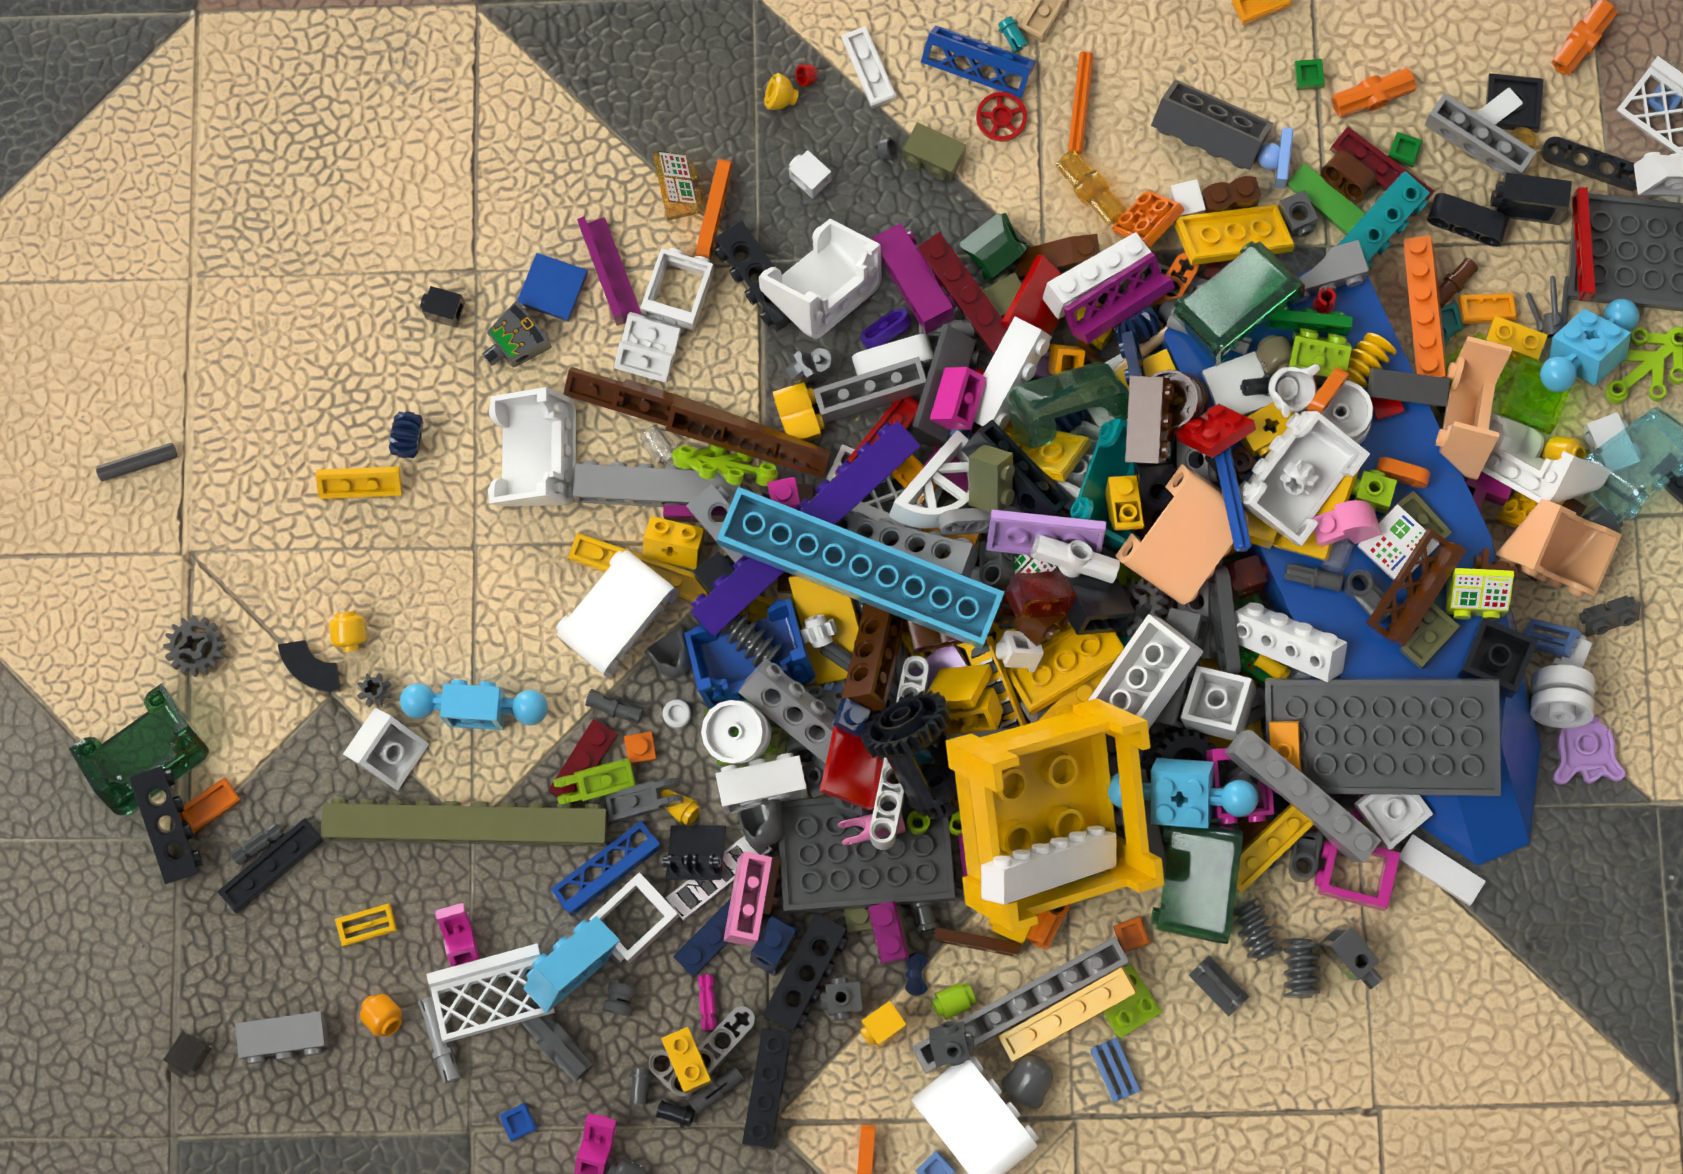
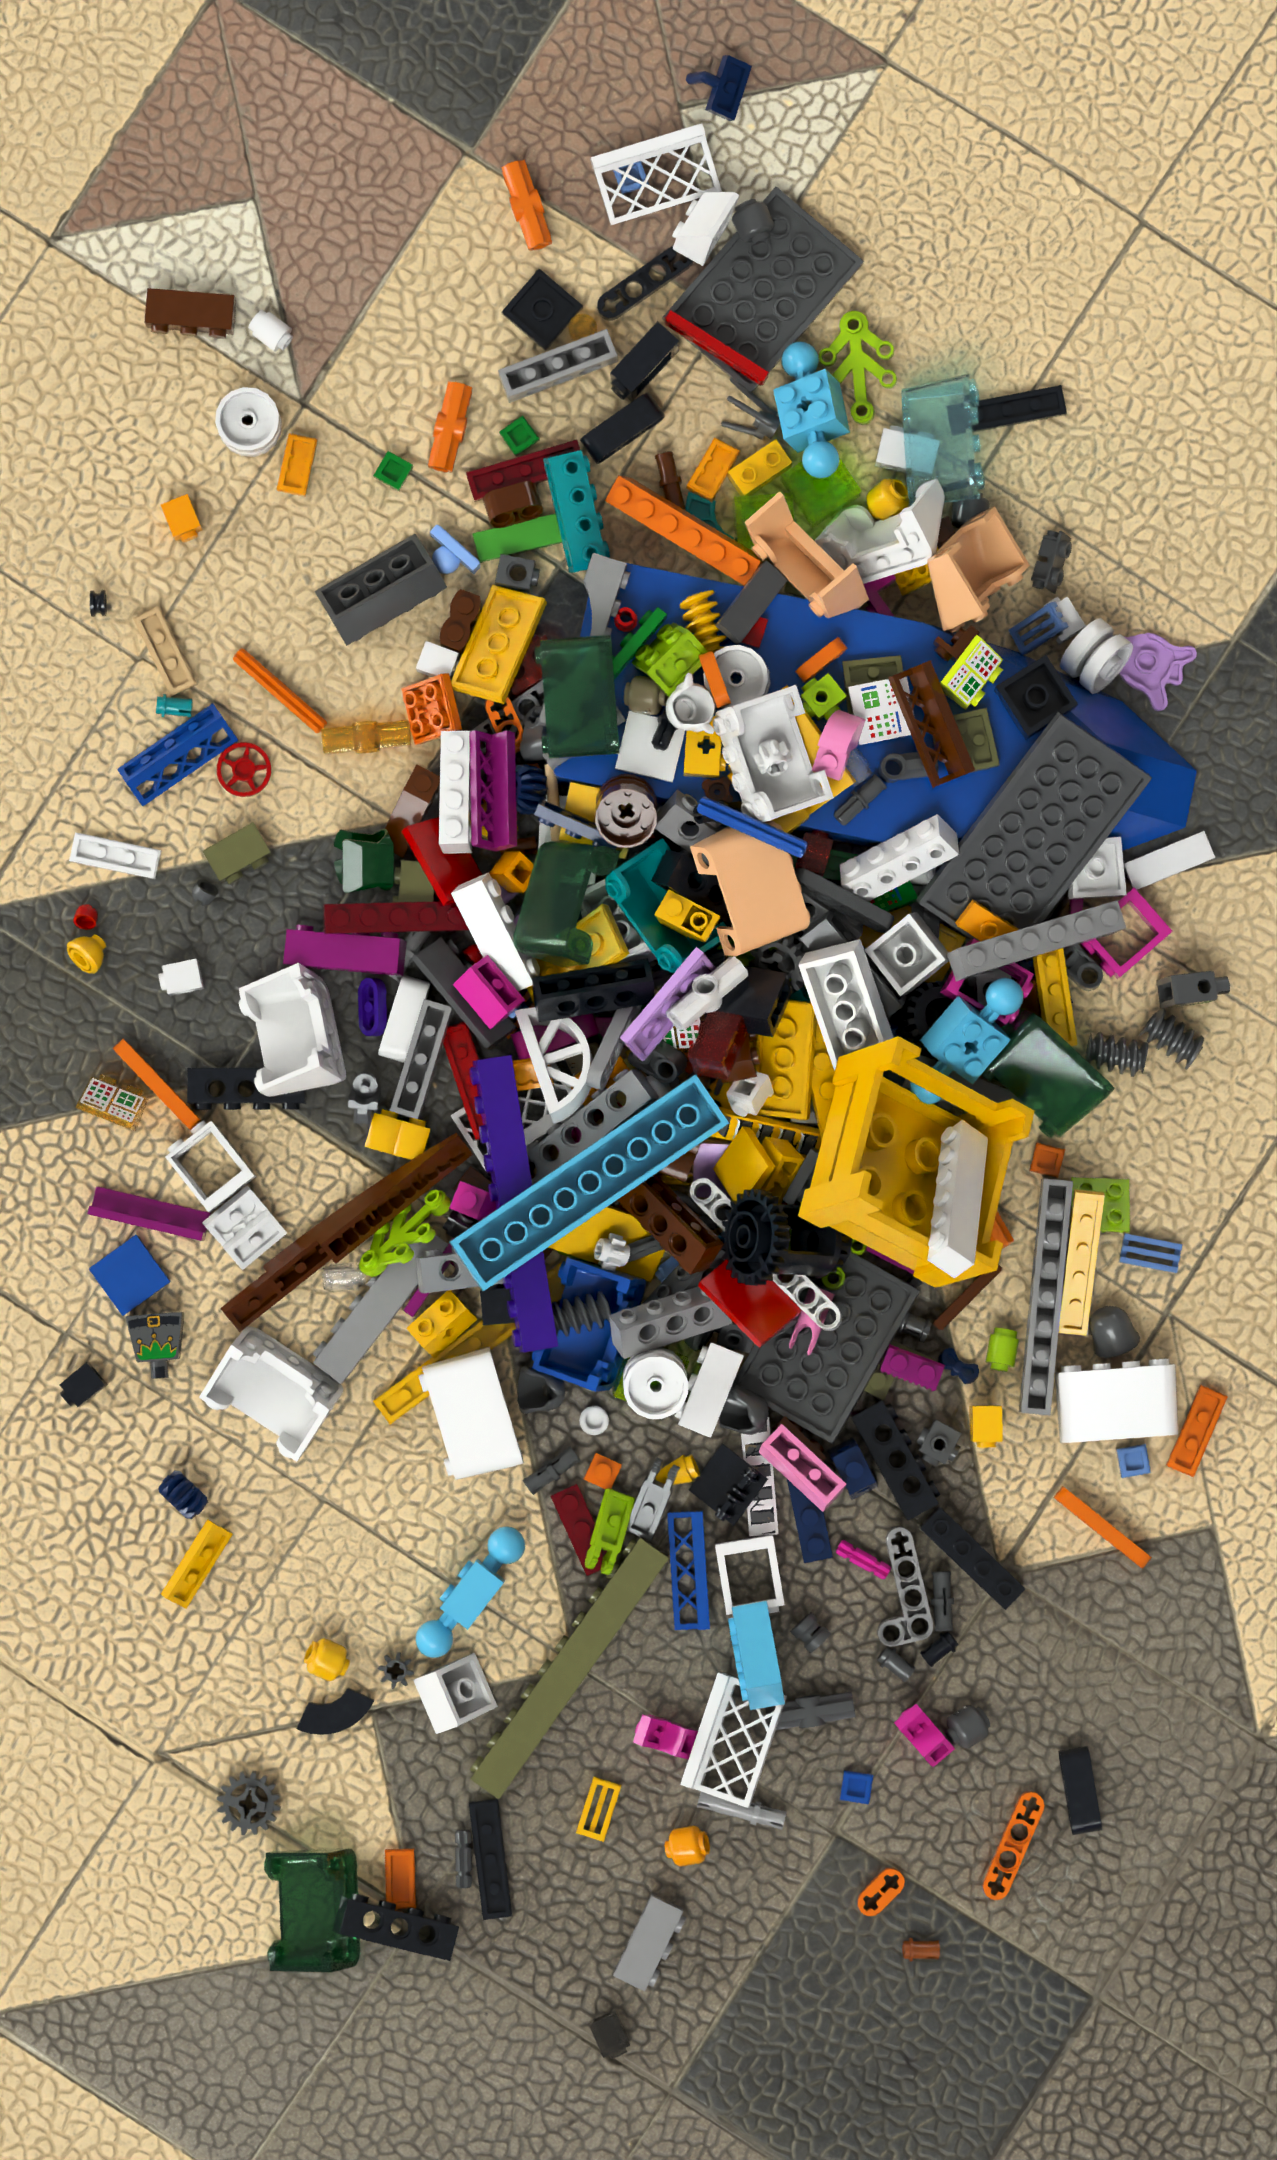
camera: 60 degrees left, 10 degrees up
(136, 462) = (41, 1749): dark grey axle -> none
(686, 1060) = (906, 1611): yellow brick -> none
(851, 717) = (712, 1277): dark blue plate -> none
(950, 1043) = (1043, 1379): dark grey brick -> none
(991, 478) = (586, 1016): olive brick -> none
(1148, 420) = (633, 848): brick -> none
(1215, 430) = (681, 798): red plate -> none
(1218, 986) = (1140, 1117): dark grey hinge -> none
(1272, 667) = (912, 885): yellow pin -> none
(1500, 106) = (539, 328): white sticker -> none

